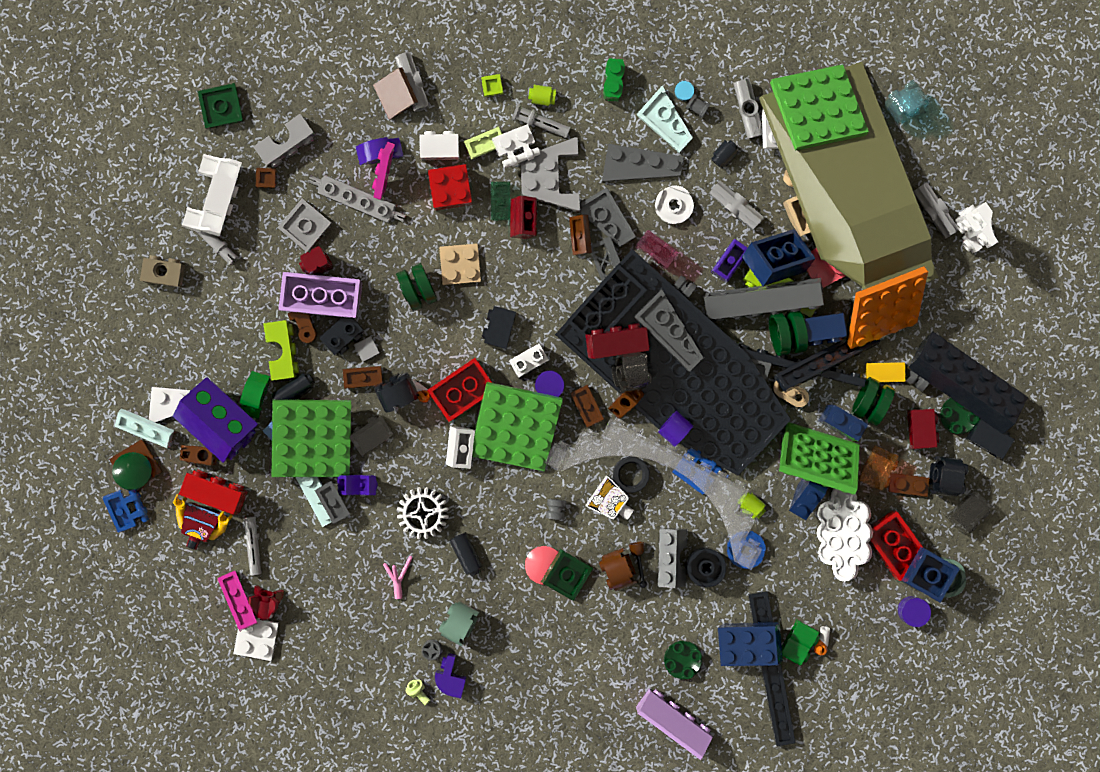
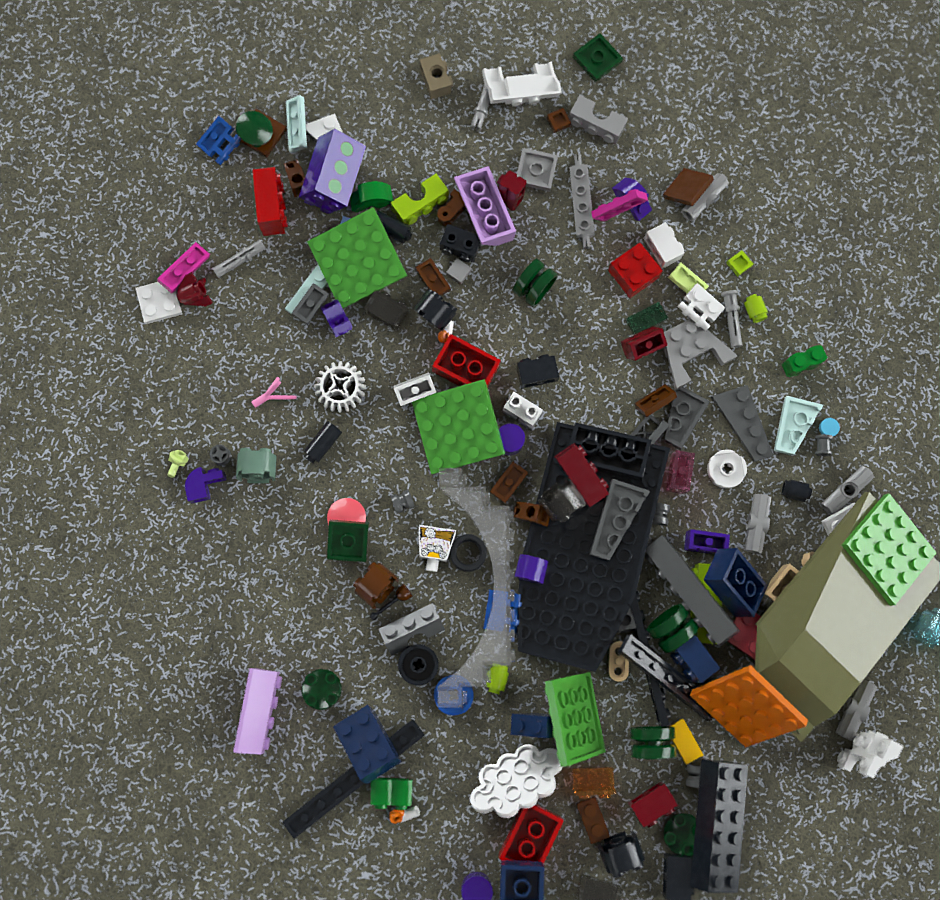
camera: 55 degrees right, 10 degrees down
(199, 522) = (237, 203): torso -> none
(460, 264) = (573, 312): tan plate -> none
(843, 422) = (618, 723): dark blue brick -> none

